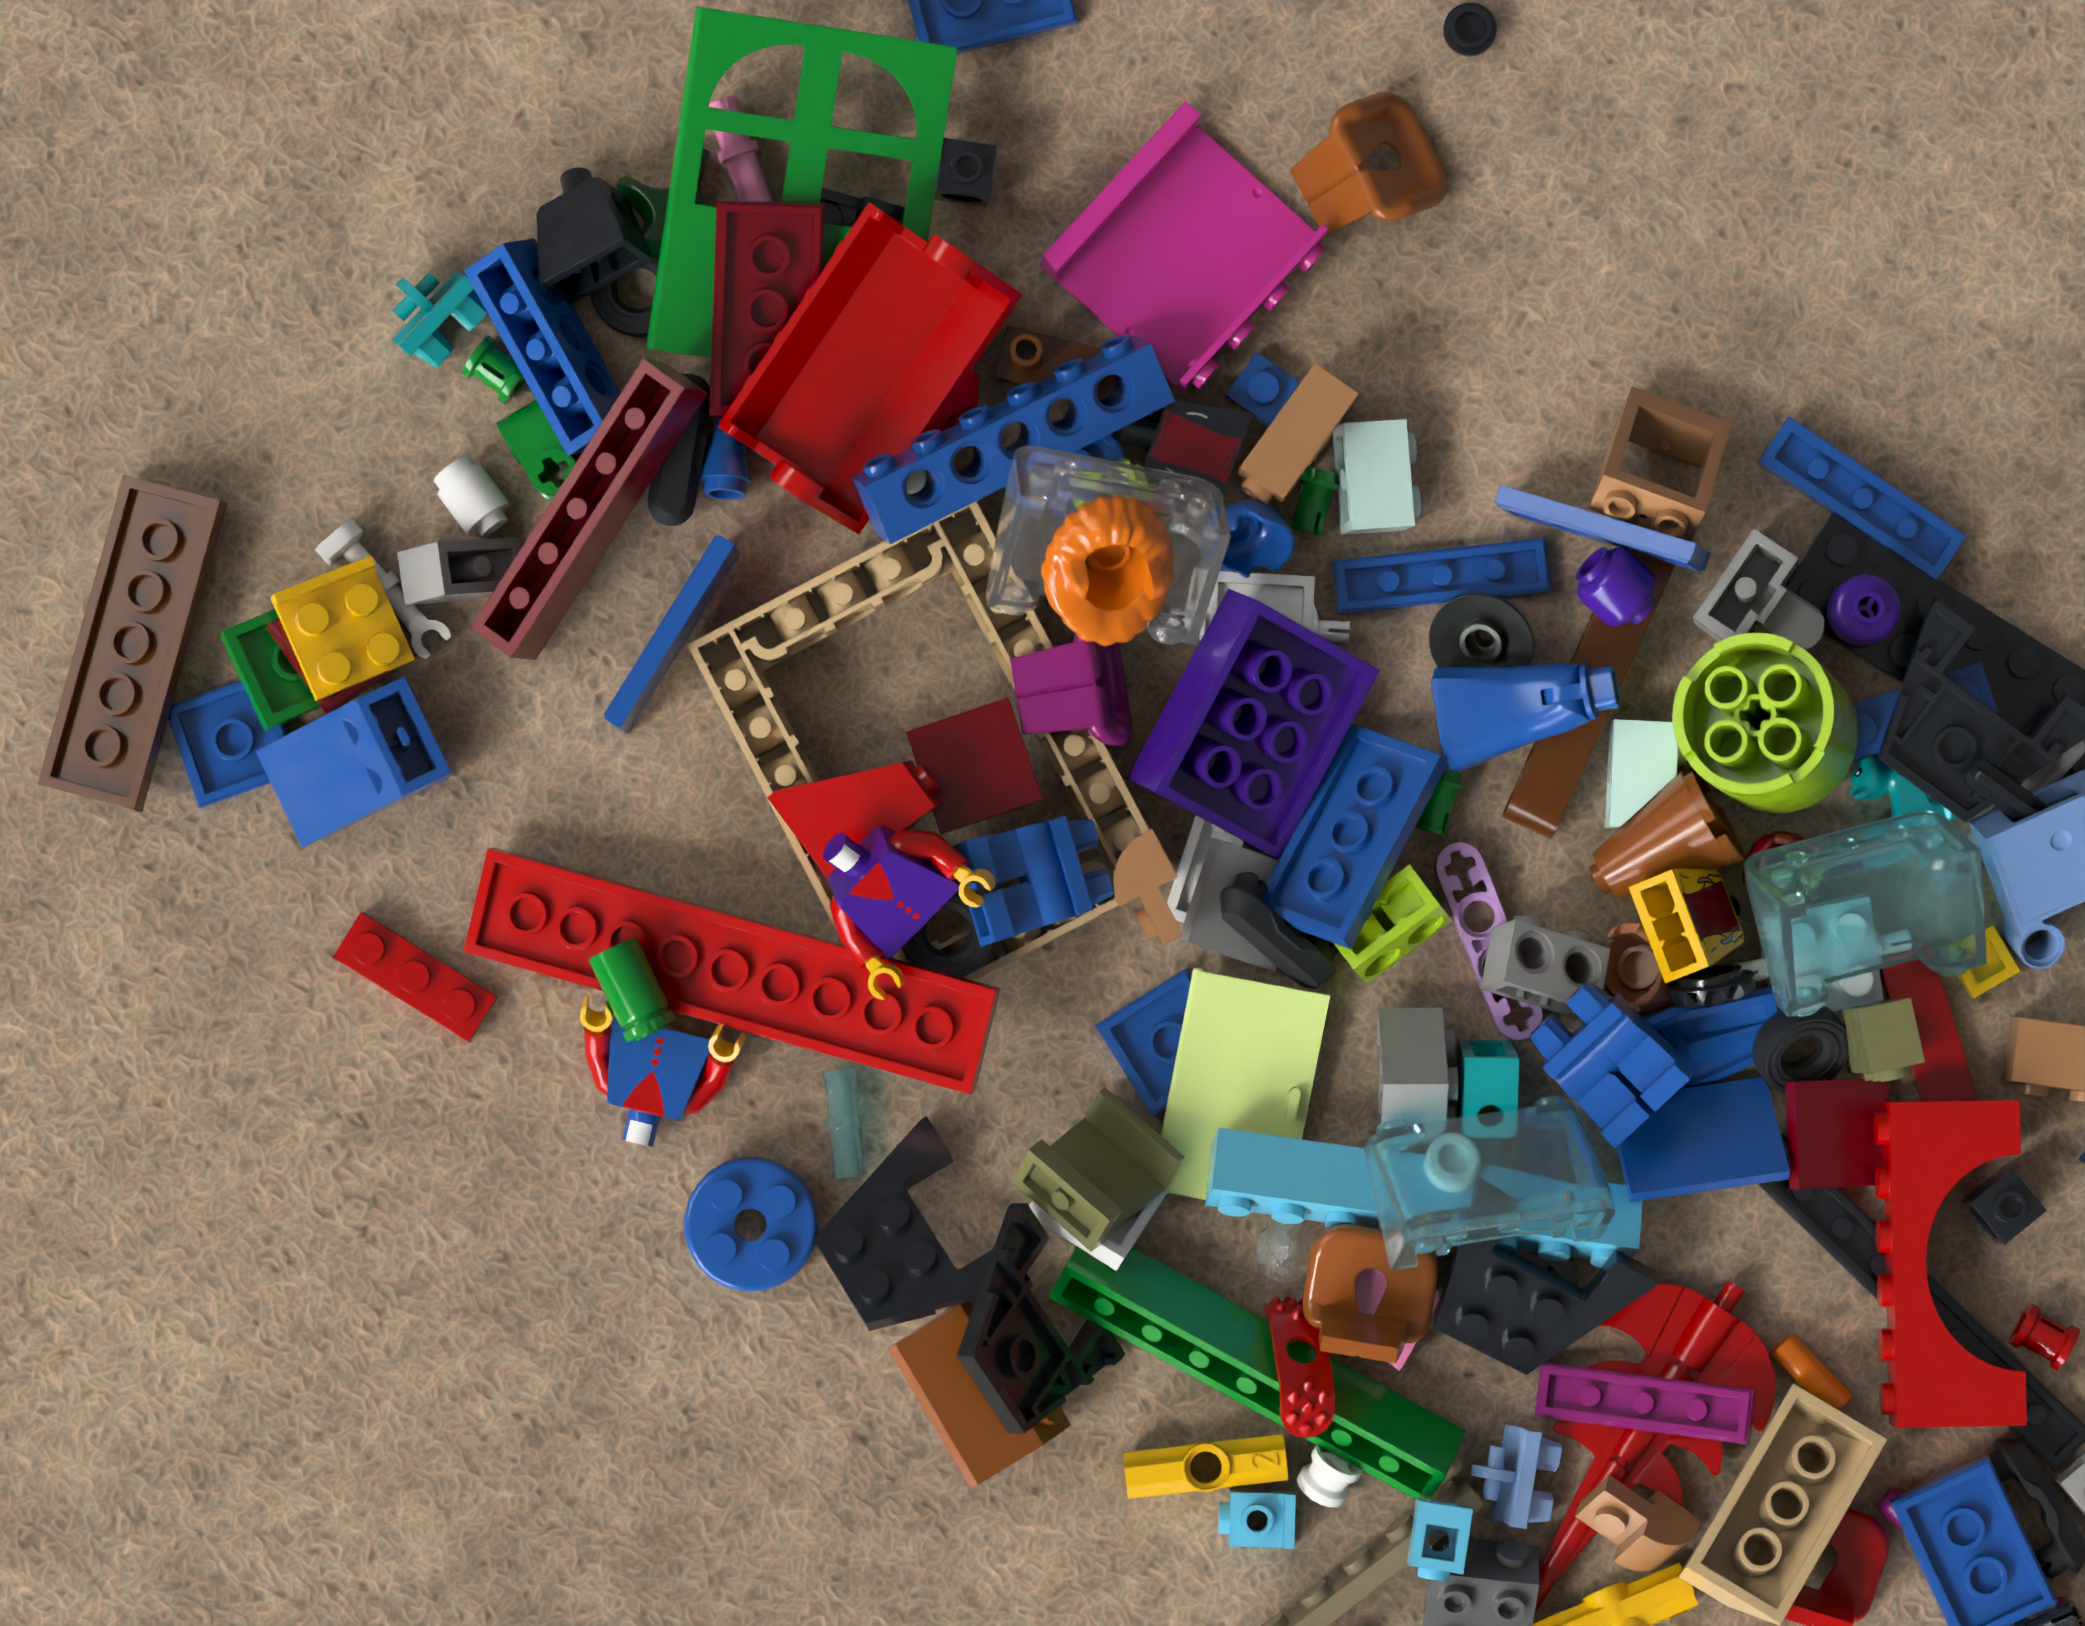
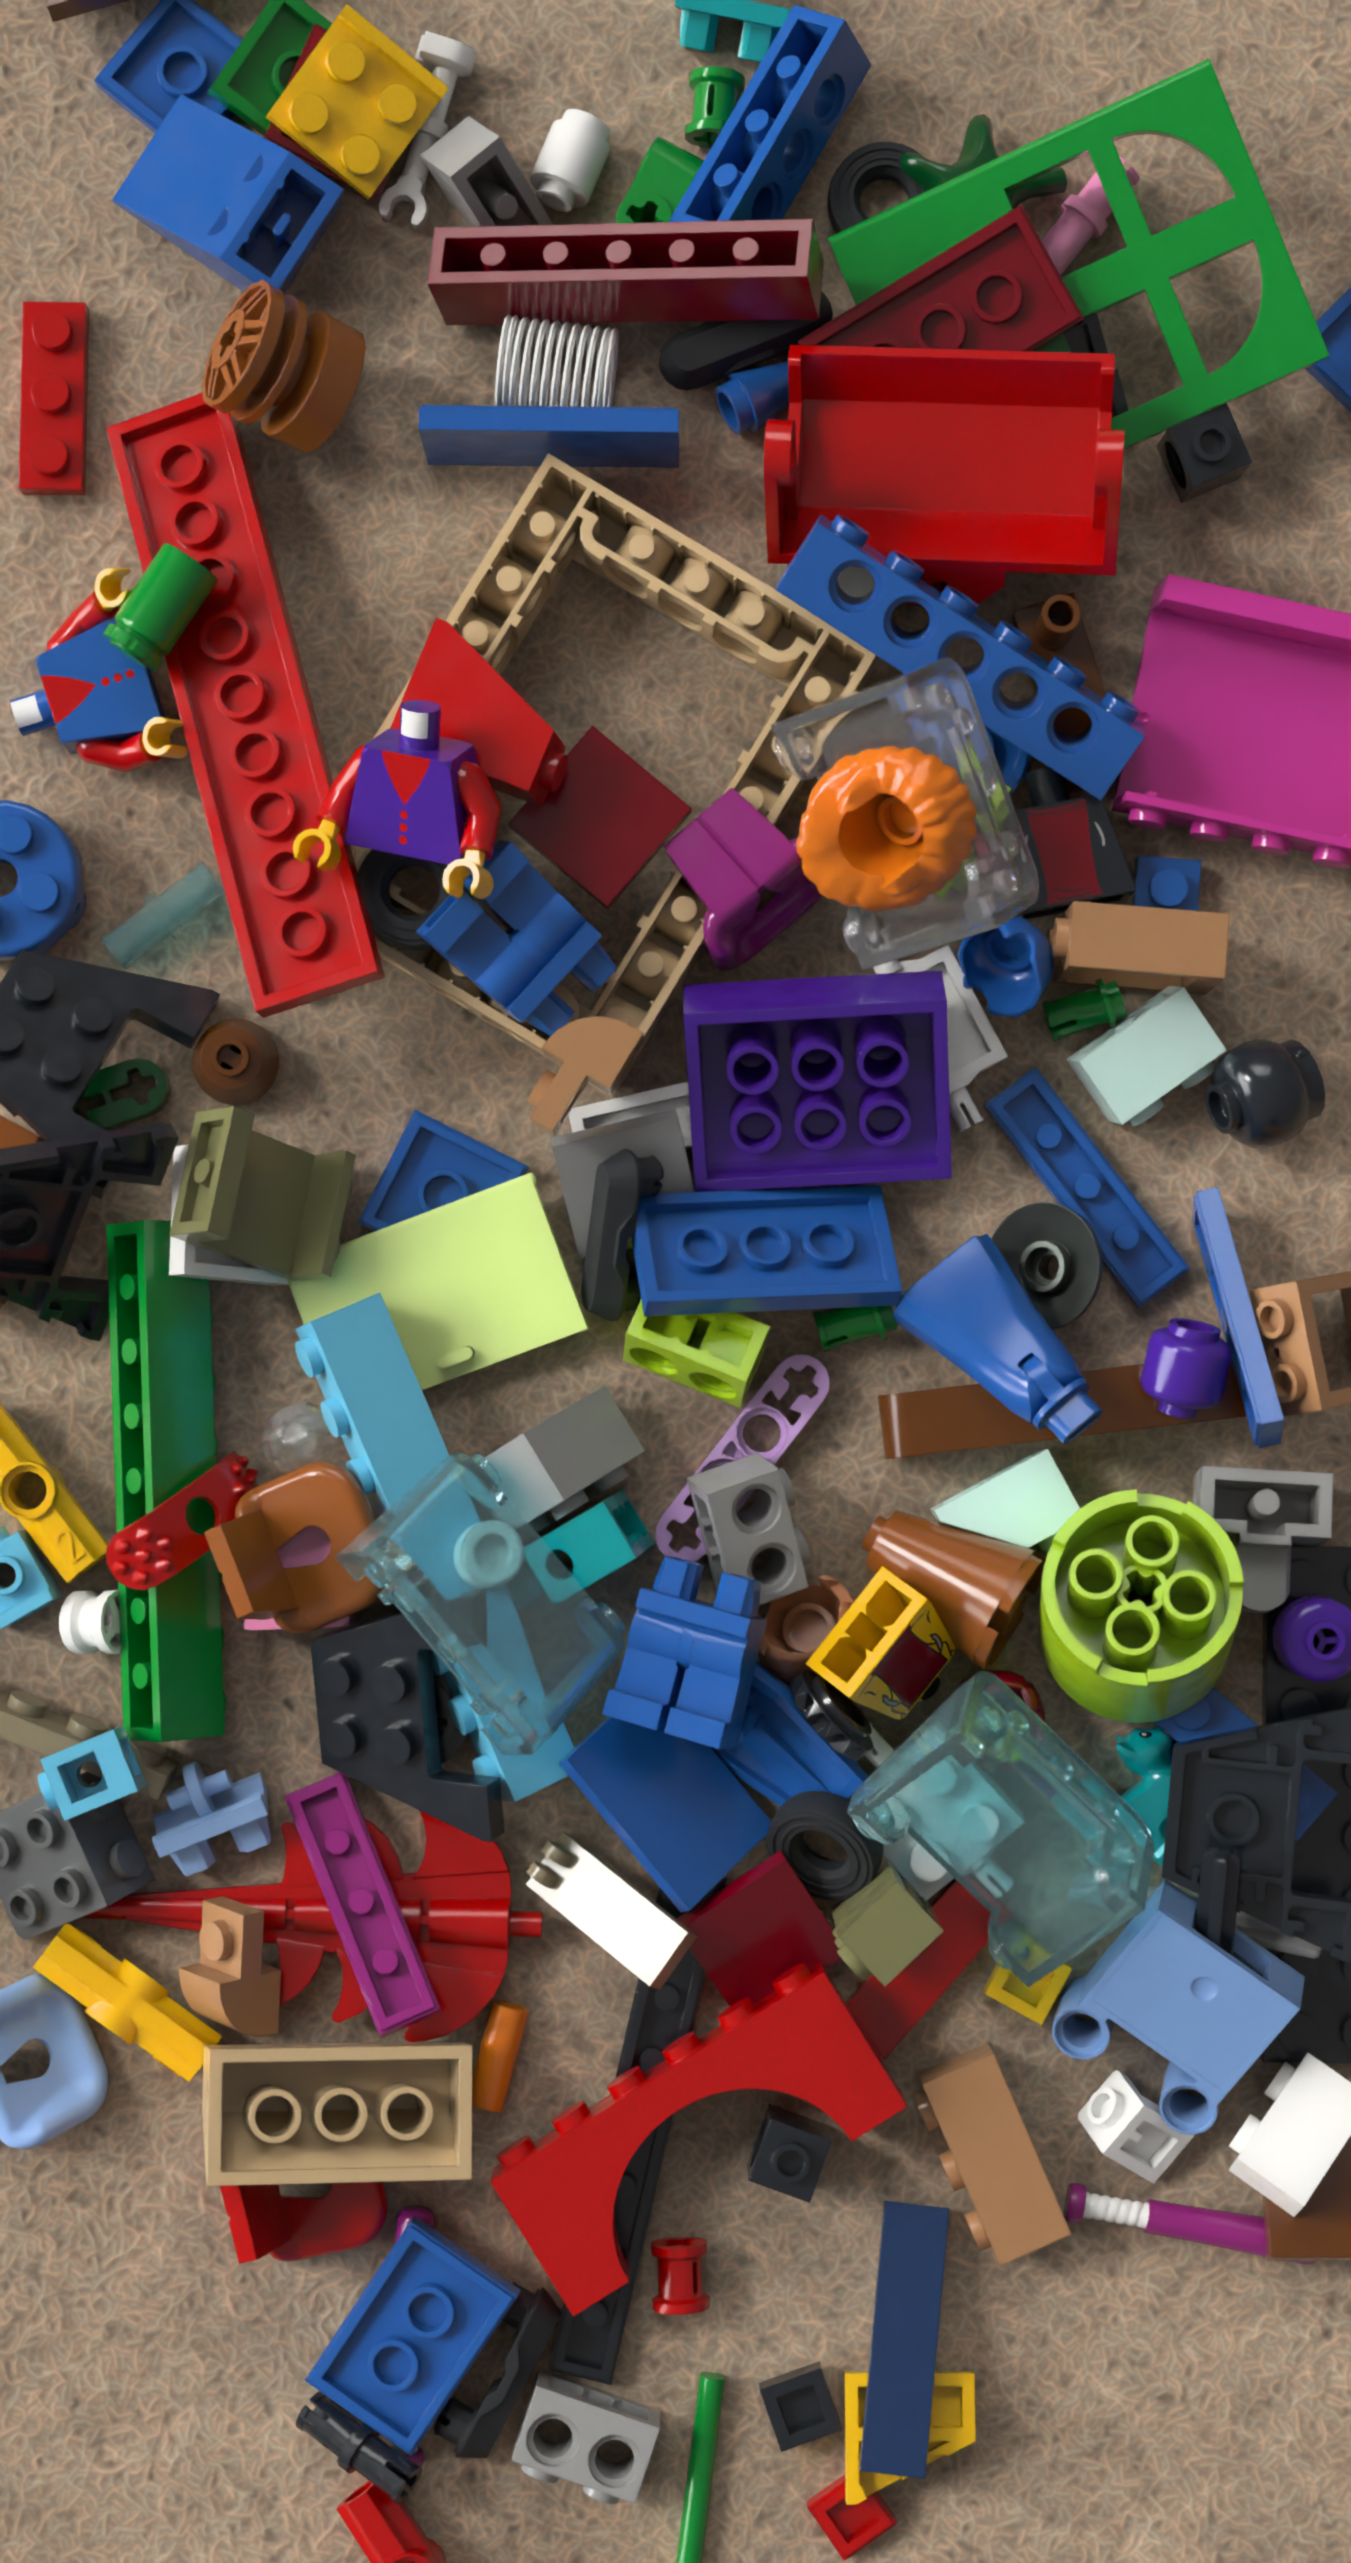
camera: 65 degrees right, 0 degrees up
(507, 797) = (283, 367): none -> dark orange wheel
(587, 237) = (902, 110): black torso -> none
(618, 627) = (509, 364): none -> white piece
(970, 1231) = (129, 1109): none -> dark green beam
(997, 1126) = (251, 1071): none -> reddish brown cone
(1452, 409) = (1265, 1092): none -> black piece
(1755, 1228) = (610, 1910): none -> hinge

